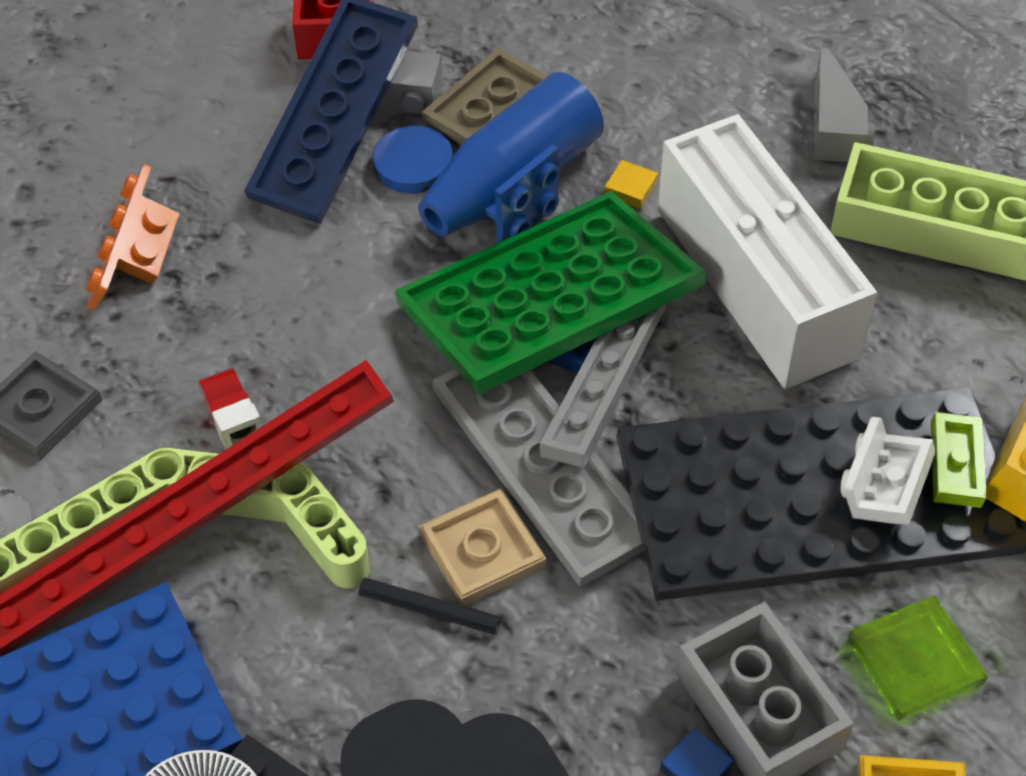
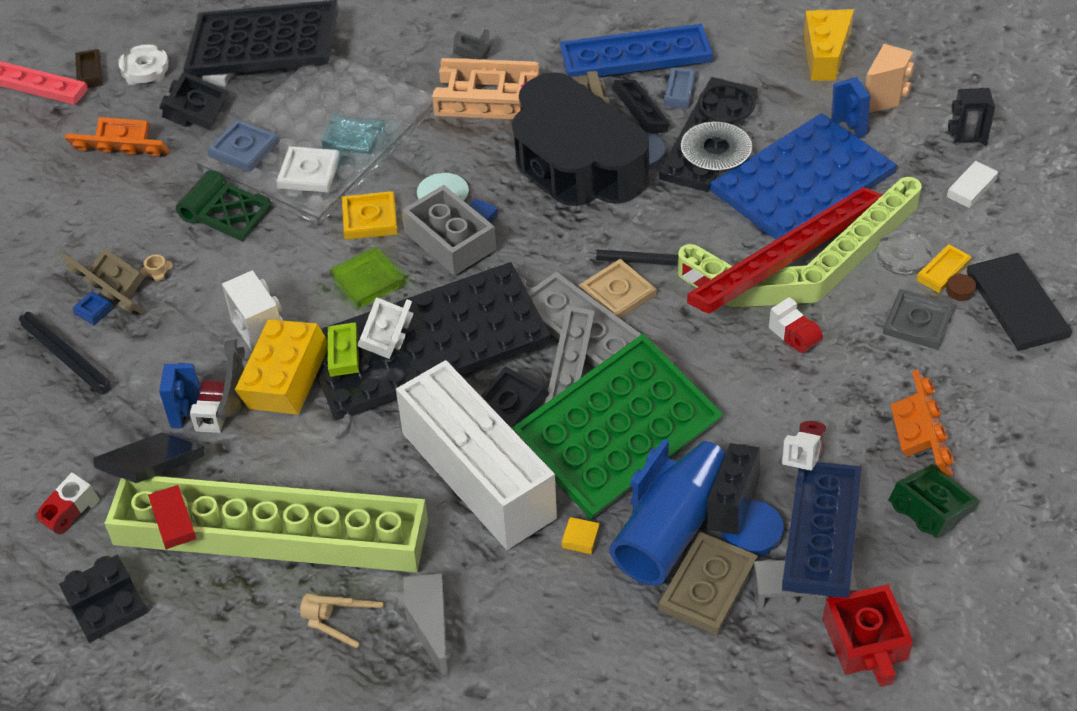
camera: 170 degrees right, 5 degrees down
(178, 138) = (932, 500): none -> dark green plate
(300, 218) = (805, 447): none -> white leg
(416, 170) = (733, 488): none -> black brick
(698, 355) = (514, 396): none -> black tile
(974, 144) = (318, 608): none -> tan plant

